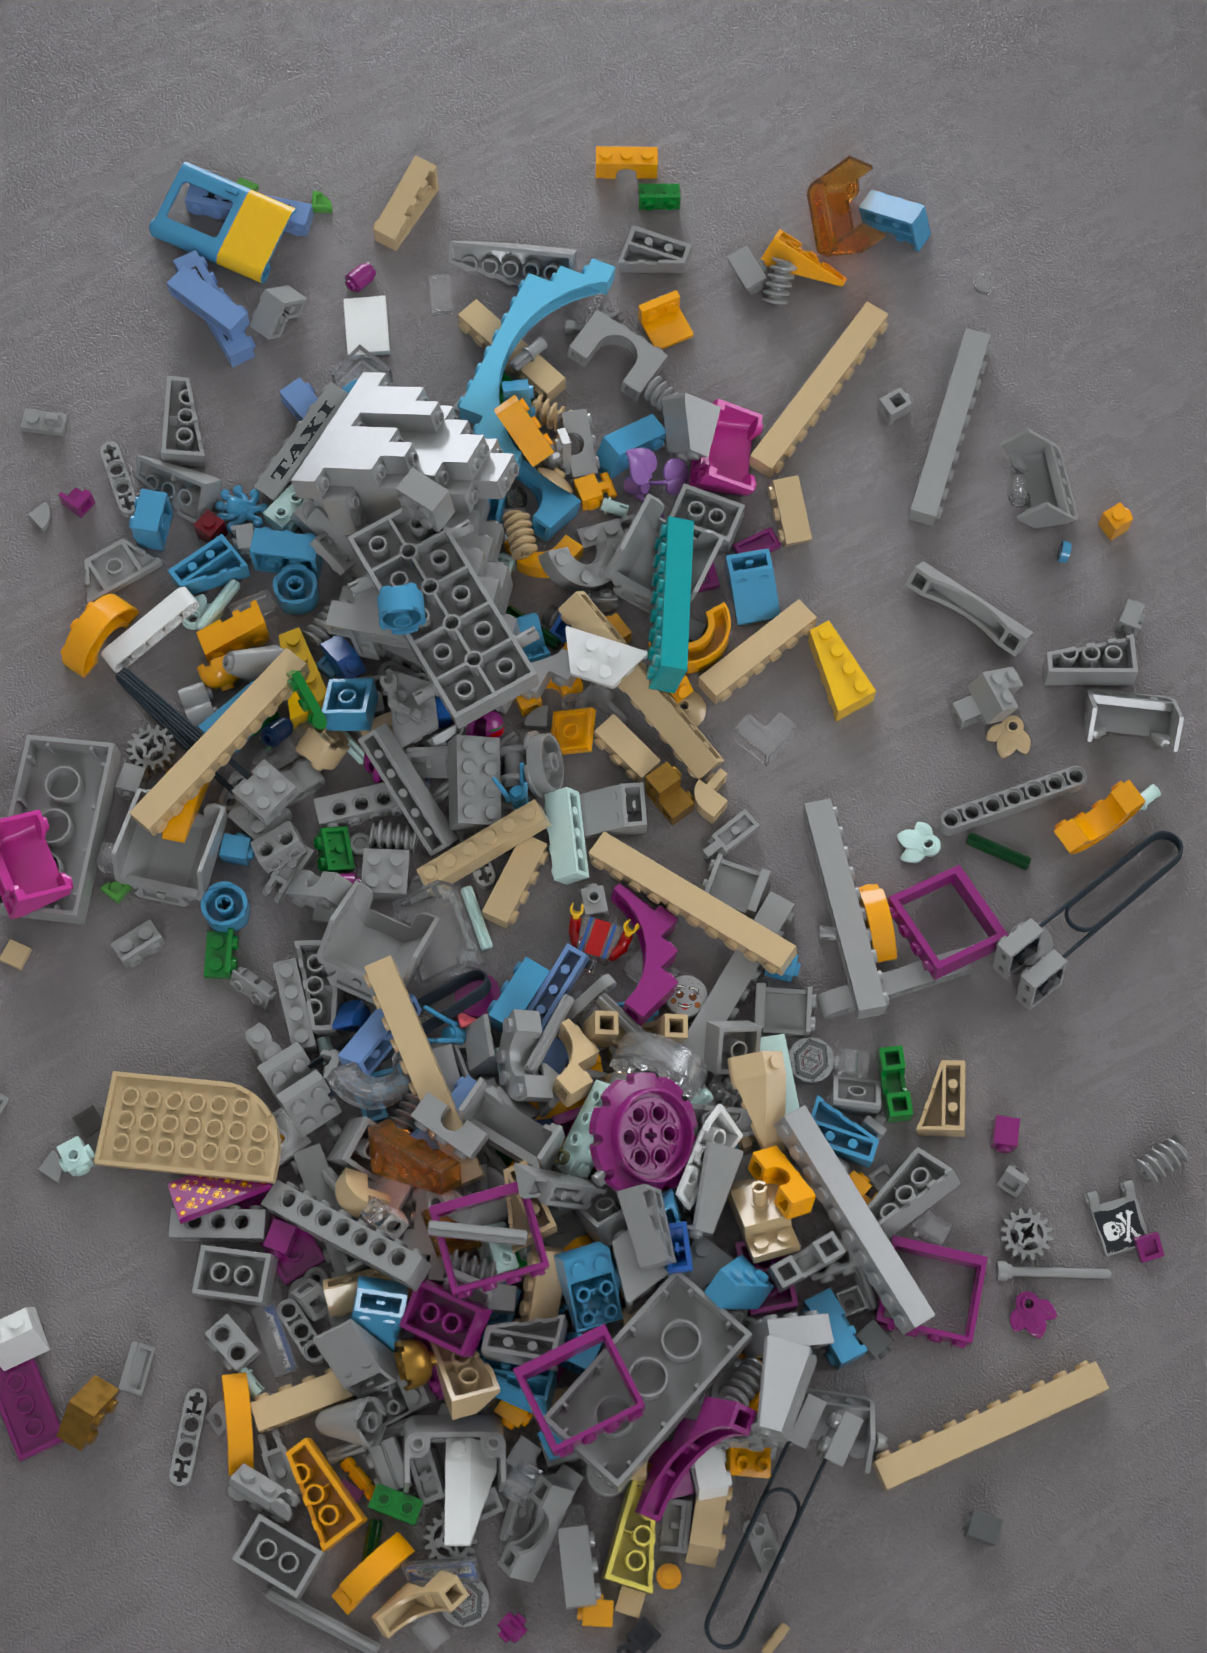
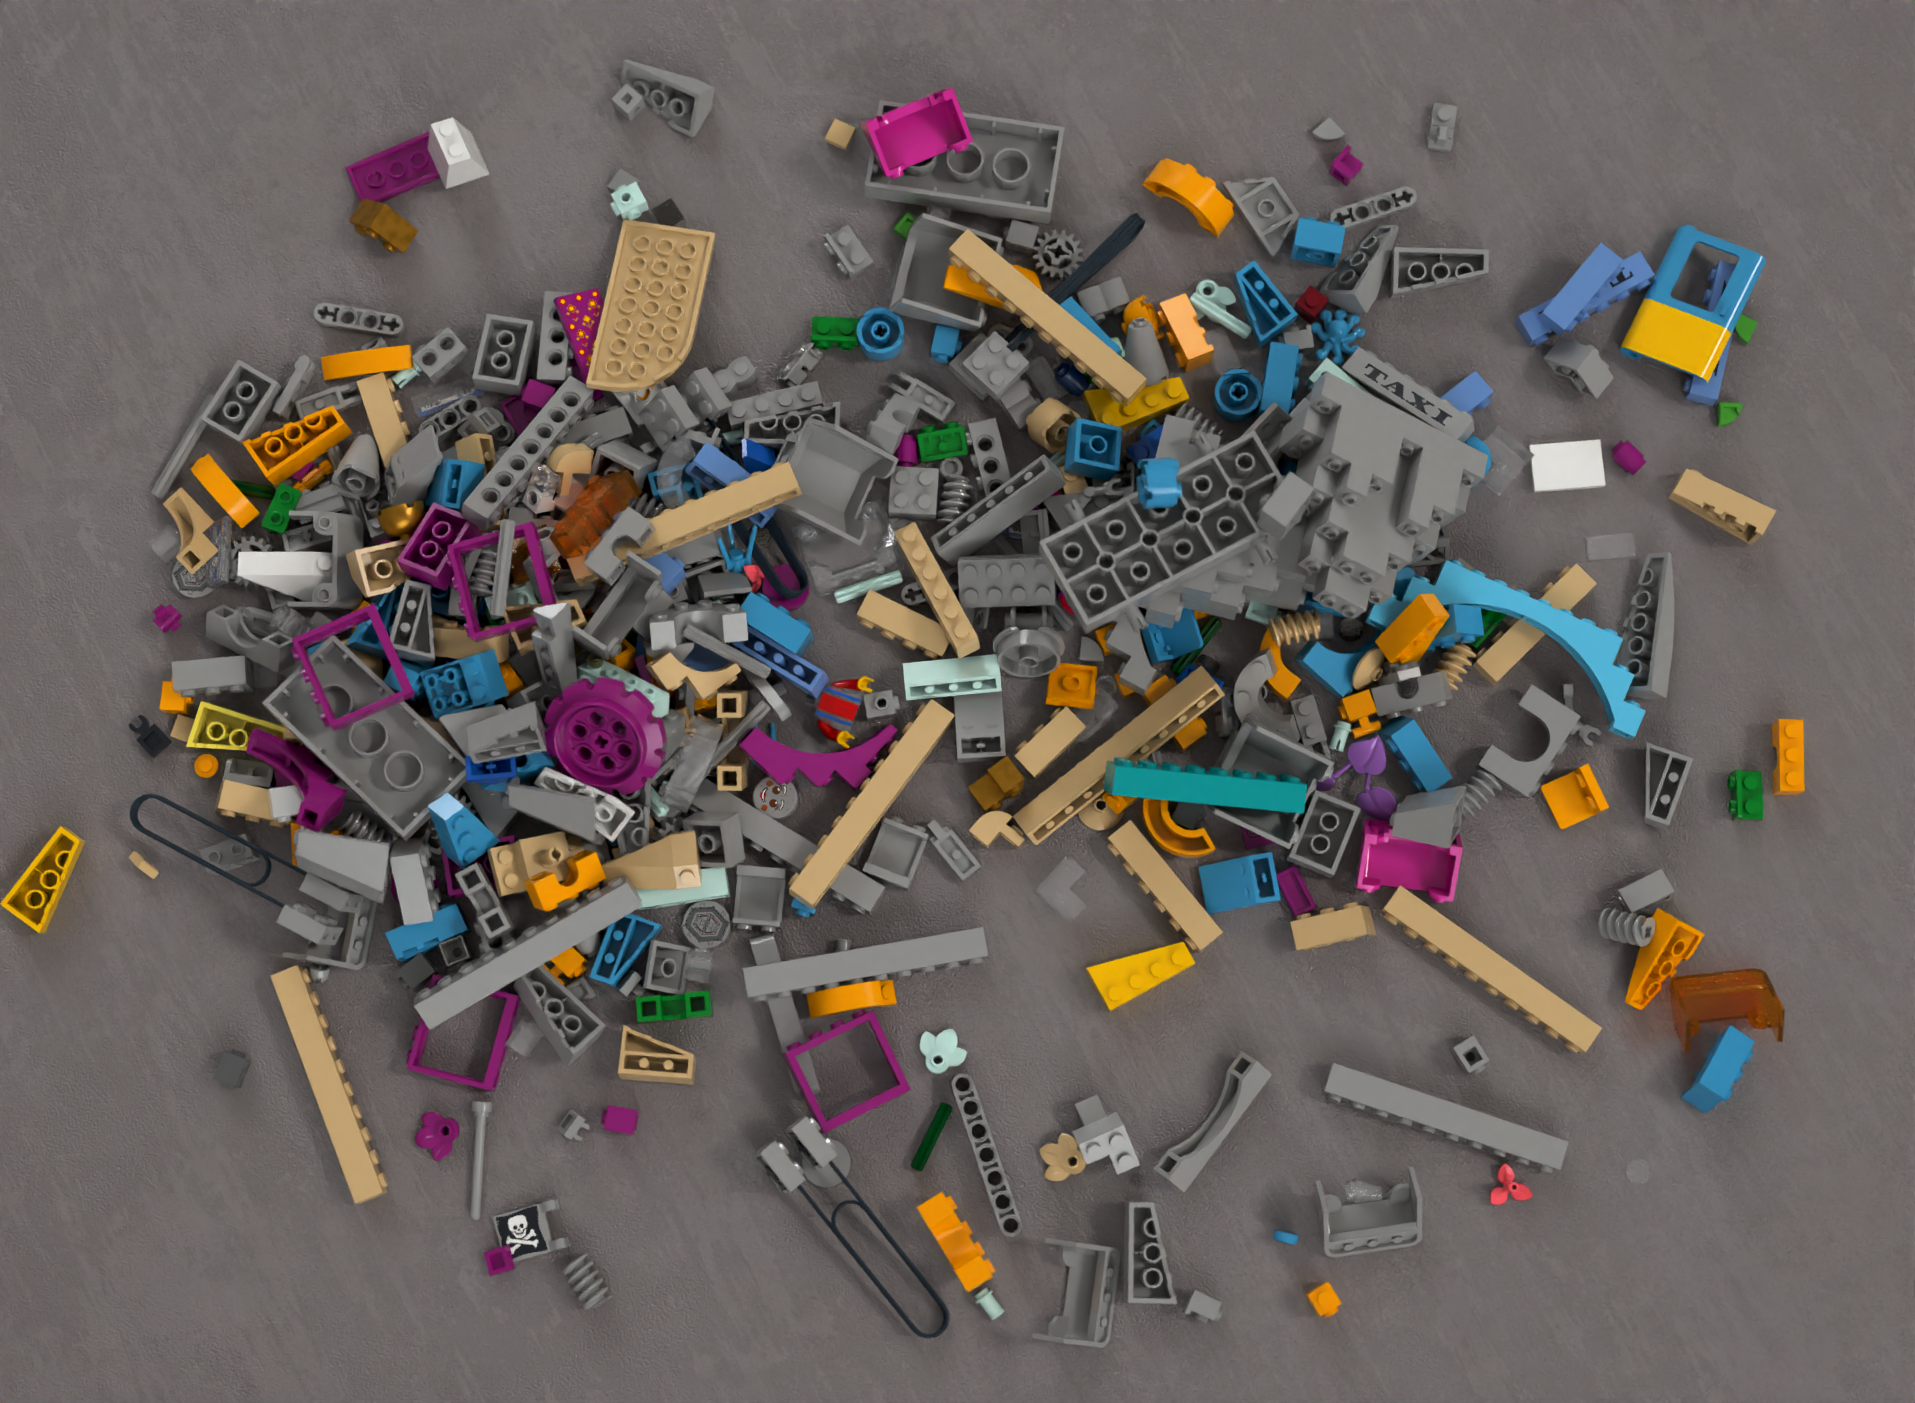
camera: 95 degrees right, 10 degrees up
(136, 1368) = (424, 268): light grey tile -> none
(150, 629) = (1190, 247): white beam -> none
(263, 1490) = (301, 386): light grey hinge -> none
(282, 843) = (947, 382): light grey brick -> none
(307, 700) = (1088, 401): green hinge -> none
(518, 794) = (992, 624): dark azure plant -> none
(528, 354) = (1522, 639): light grey axle -> none
(600, 658) = (1140, 708): white wing -> none
(1007, 372) = (1518, 1191): none -> coral plant
(1033, 1239) = (509, 1143): light grey gear -> none

